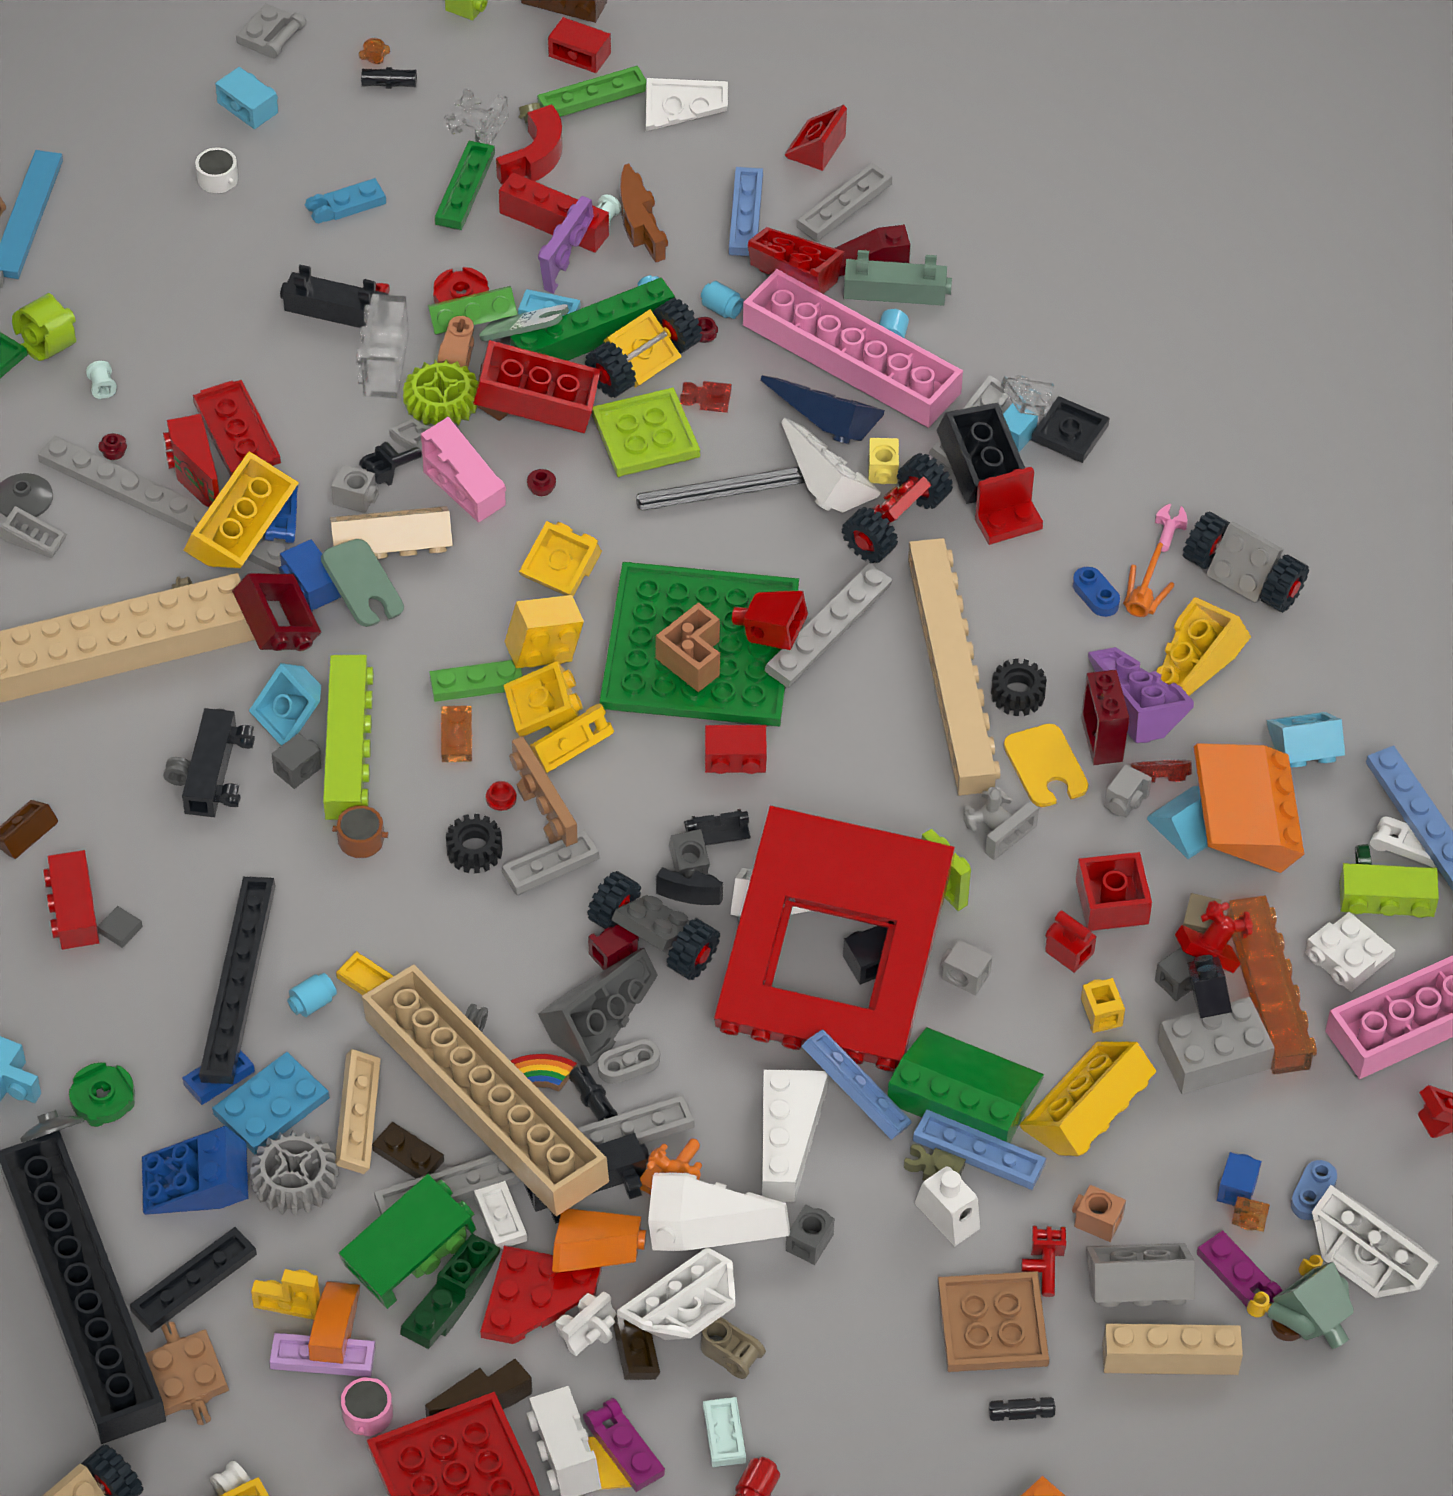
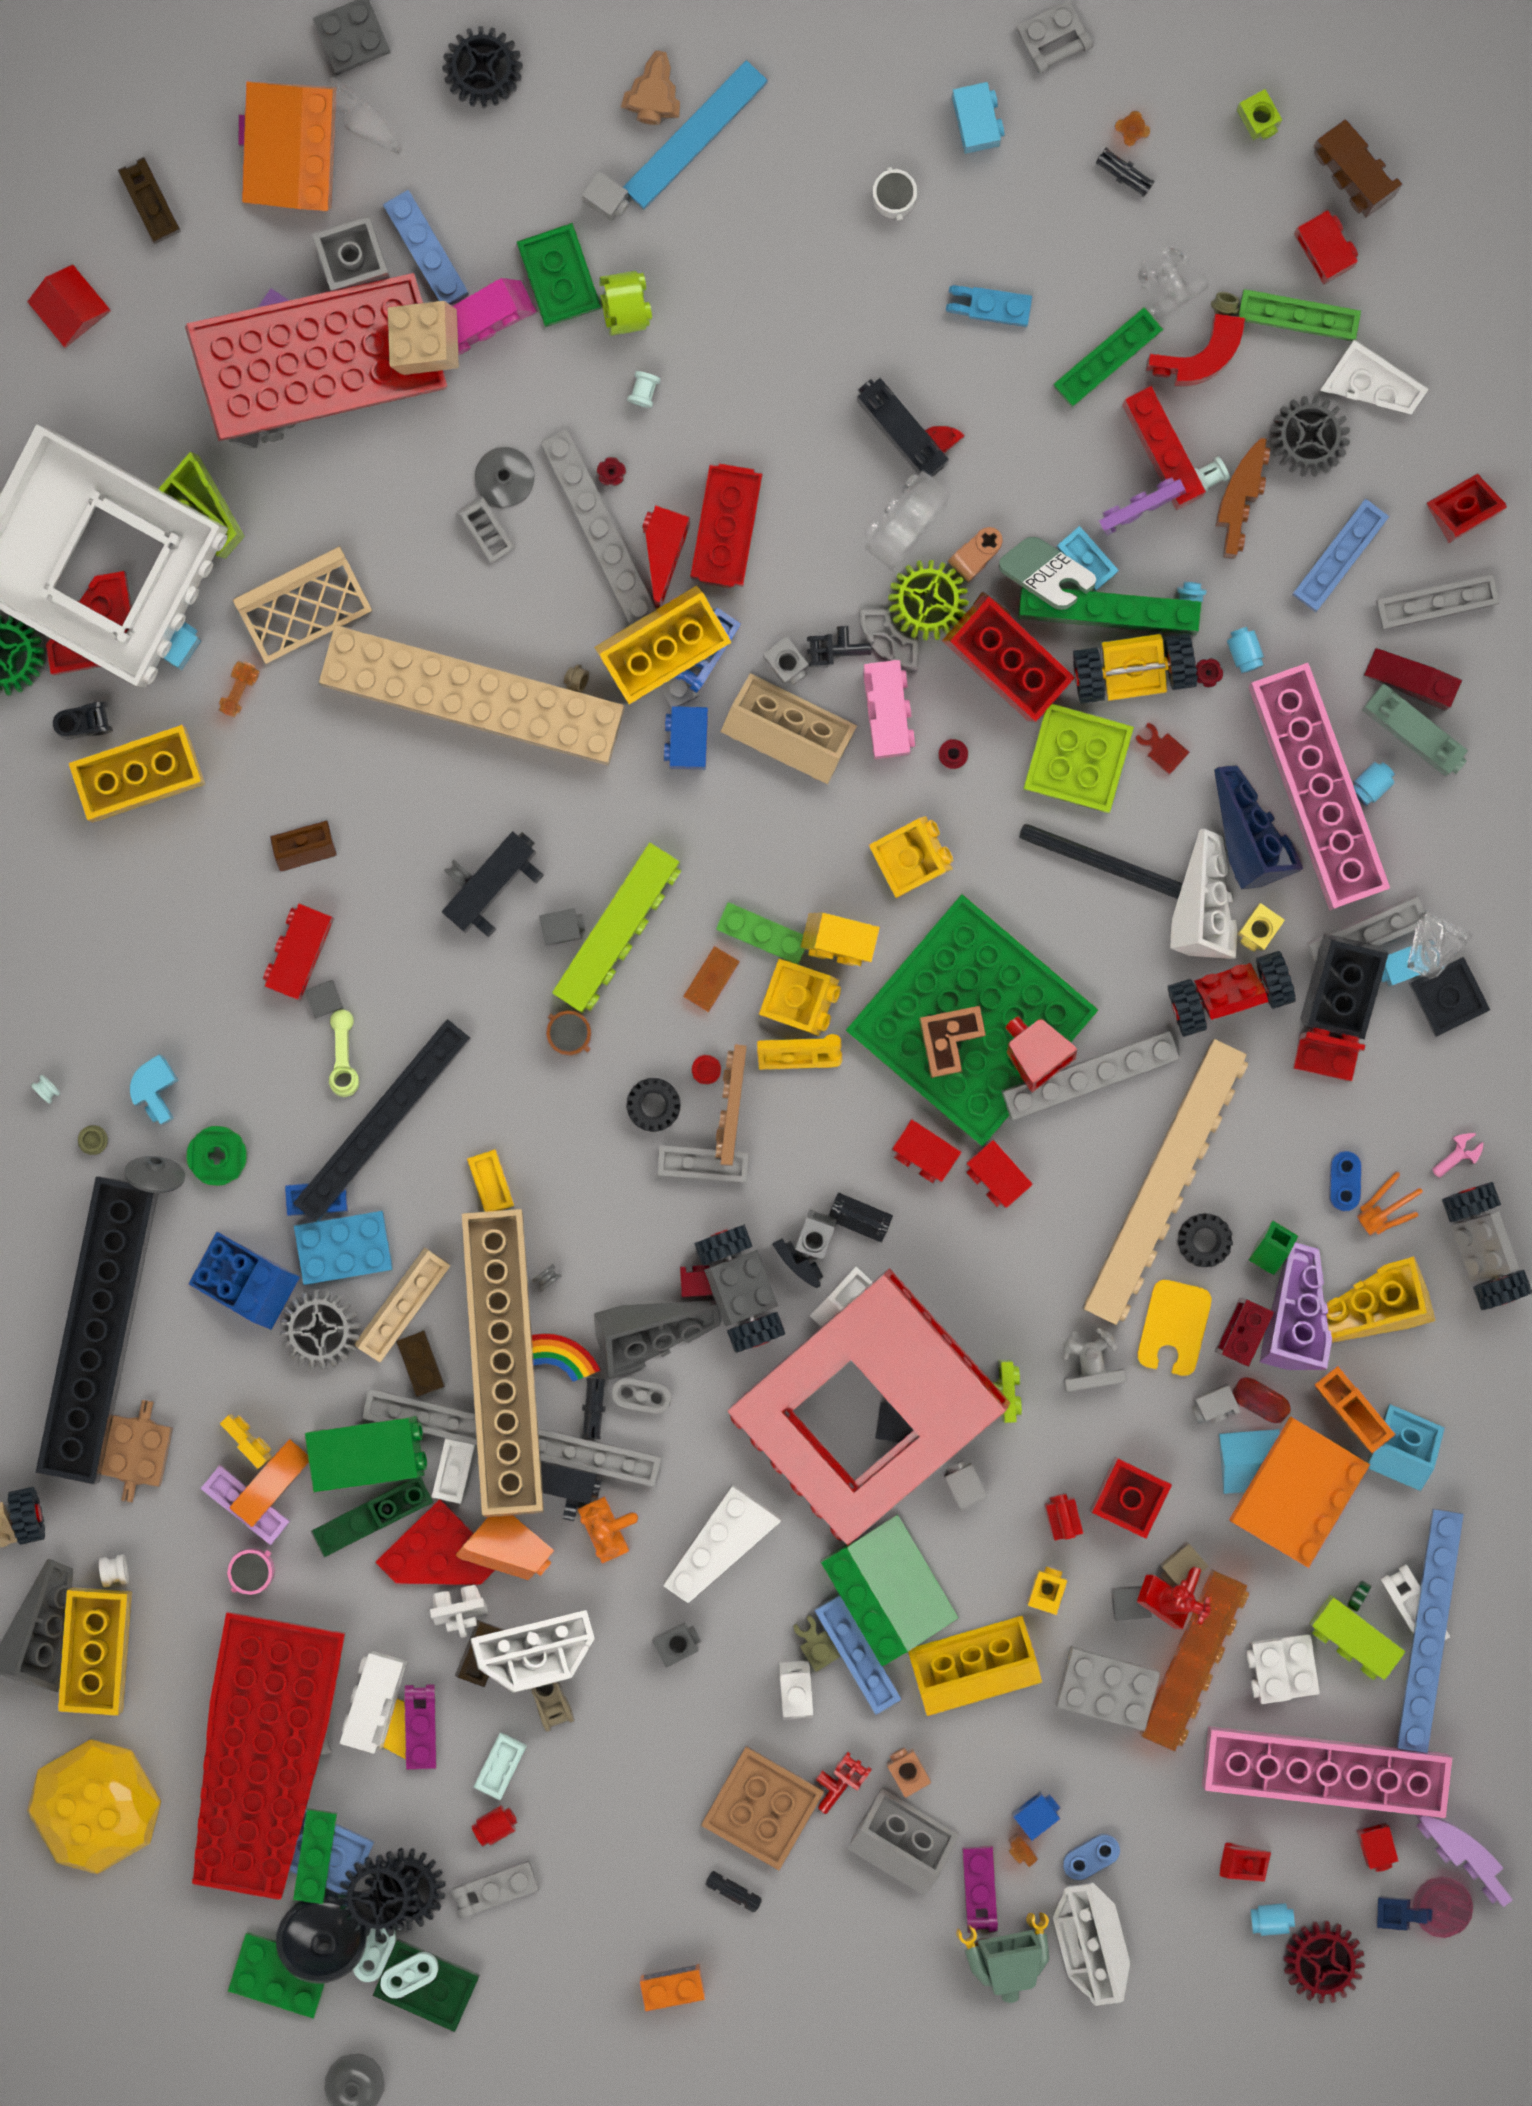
camera: 35 degrees right, 35 degrees up
(149, 937) = (341, 1023): none -> yellowish green piece
(193, 1279) = (188, 1374): black plate -> none
(252, 599) = (609, 770): dark red window -> none
(287, 701) = (589, 865): medium azure slope -> none
(311, 994) = (432, 1170): medium azure brick -> none
(361, 578) = (722, 771): sand green piece -> none
(449, 282) = (1030, 472): red plate -> none
(478, 307) = (1015, 521): bright green plate -> none
(510, 1384) = (340, 1618): dark brown slope -> none
(661, 153) = (1300, 426): none -> dark grey gear
(704, 1215) = (589, 1585): white wedge -> none
(797, 257) = (1336, 657): red wedge -> none
(810, 732) = (998, 1175): none -> red brick
(857, 1084) = (798, 1543): medium blue tile -> none
(1077, 657) = (1270, 1253): none -> green brick
(1172, 1349) = (877, 1923): tan brick -> none
(1209, 986) = (1129, 1650): black brick -> none
(1240, 723) = (1354, 1410): none -> orange slope

